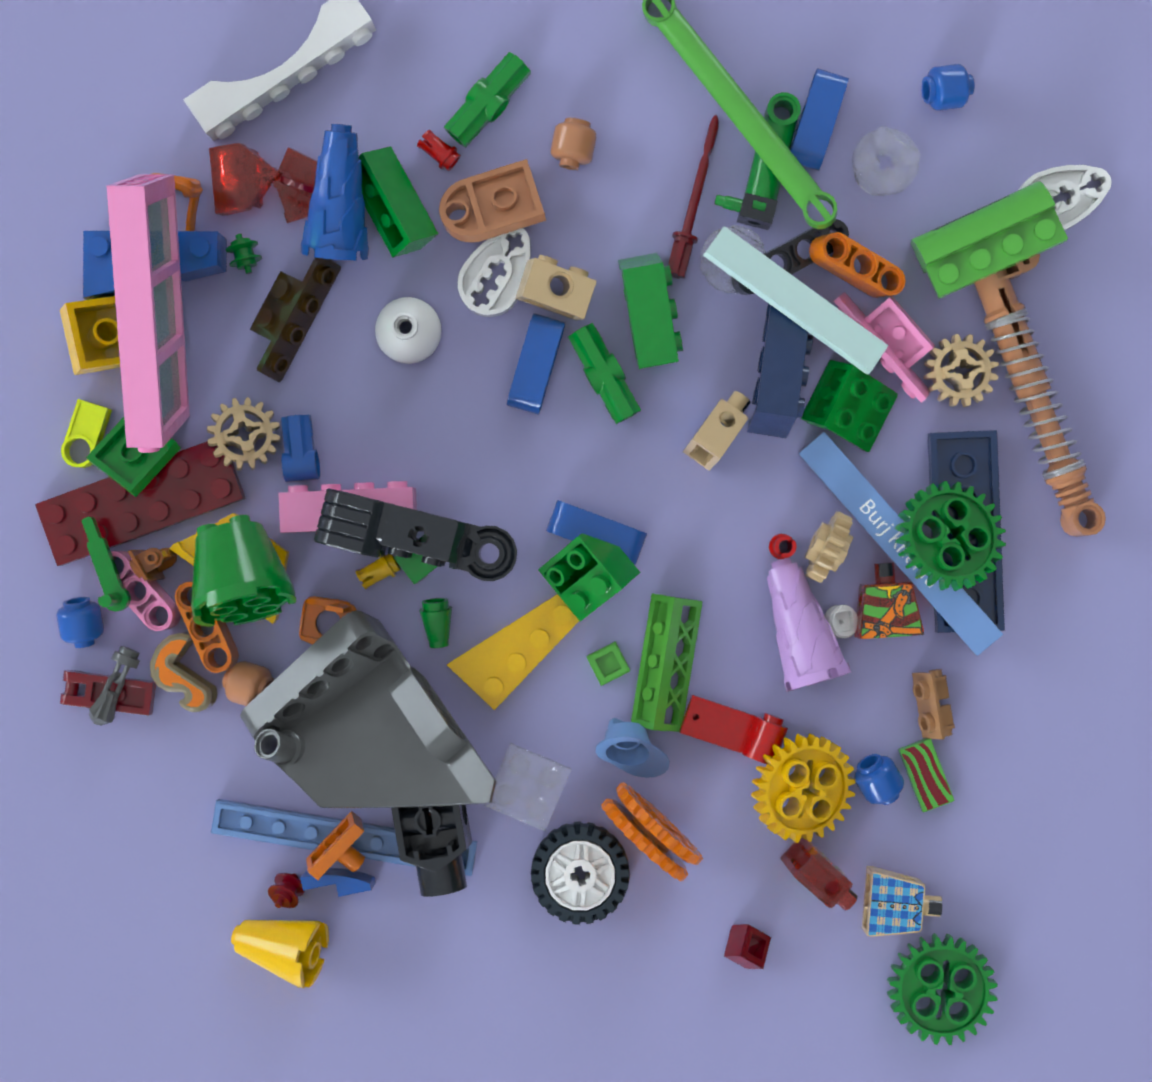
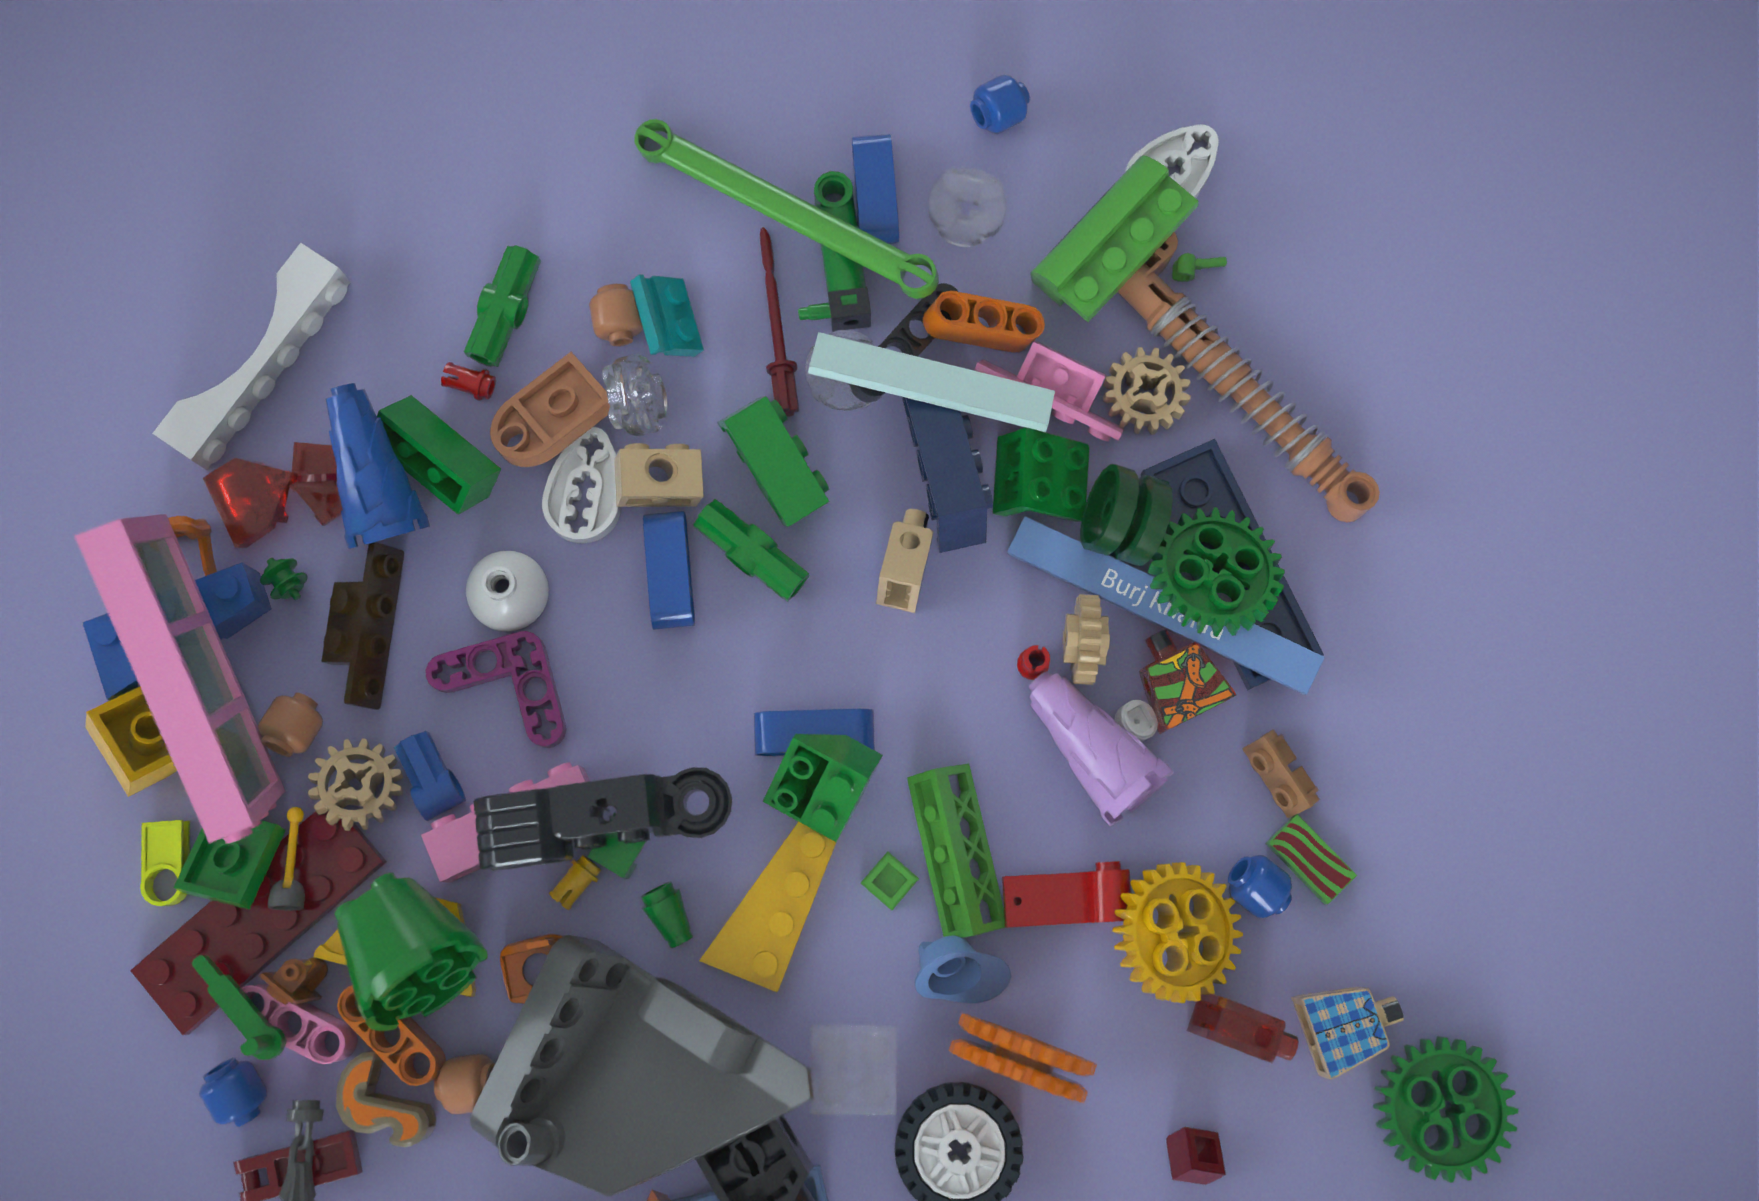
camera: 25 degrees left, 10 degrees down
(166, 494) = (289, 893): none -> hinge
(211, 369) = (290, 724): none -> nougat head
(389, 388) = (507, 665): none -> magenta beam
(562, 216) = (634, 395): none -> clear plate
(612, 160) = (666, 316): none -> teal plate
(901, 465) = (1126, 515): none -> dark green wheel
(1036, 281) = (1184, 268): none -> bright green hand

